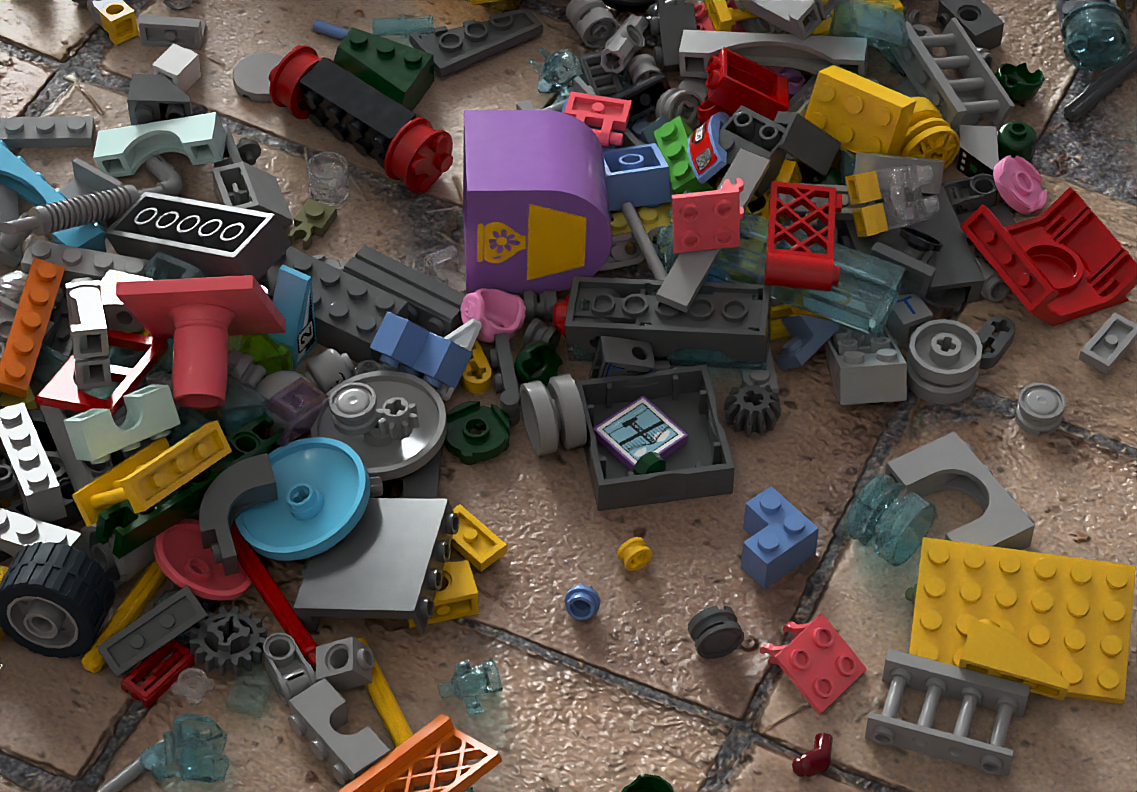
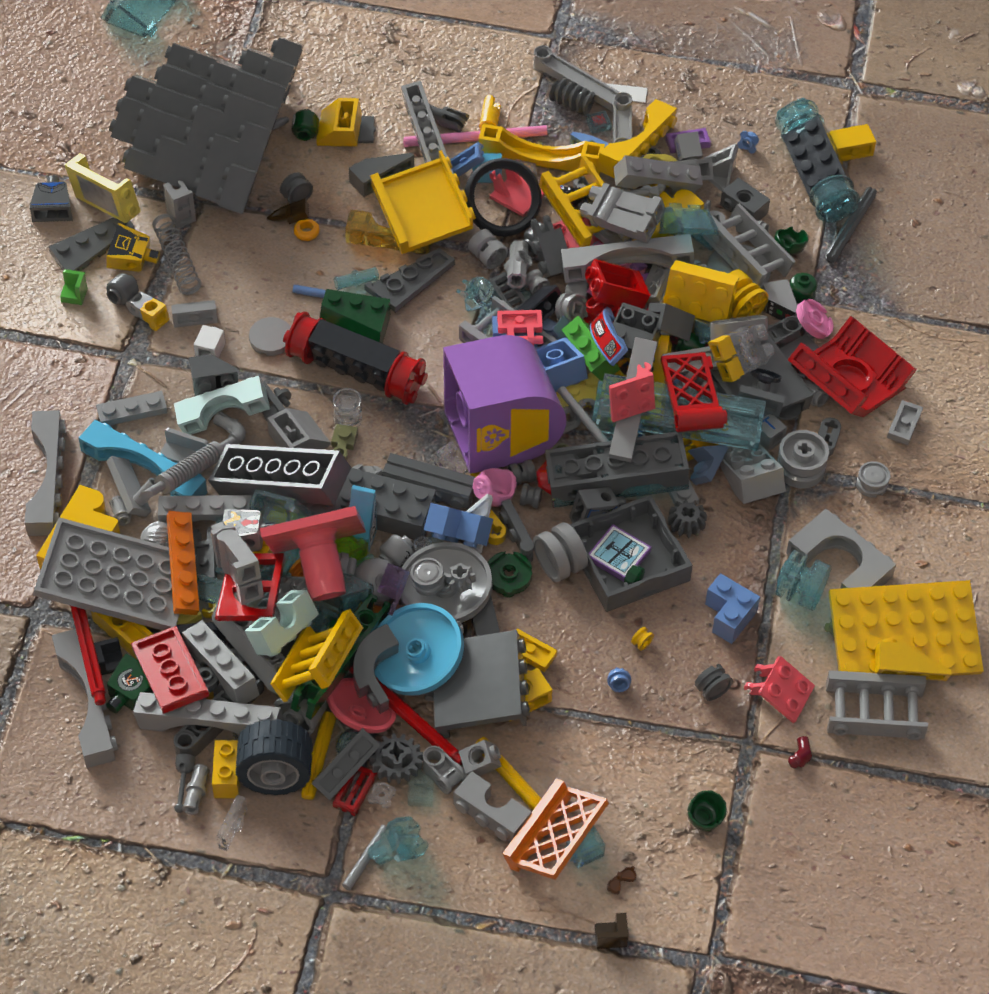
camera: 15 degrees left, 5 degrees up
(472, 682) = (565, 751): clear light blue piece -> none
(537, 362) = (536, 518): dark green hair -> none

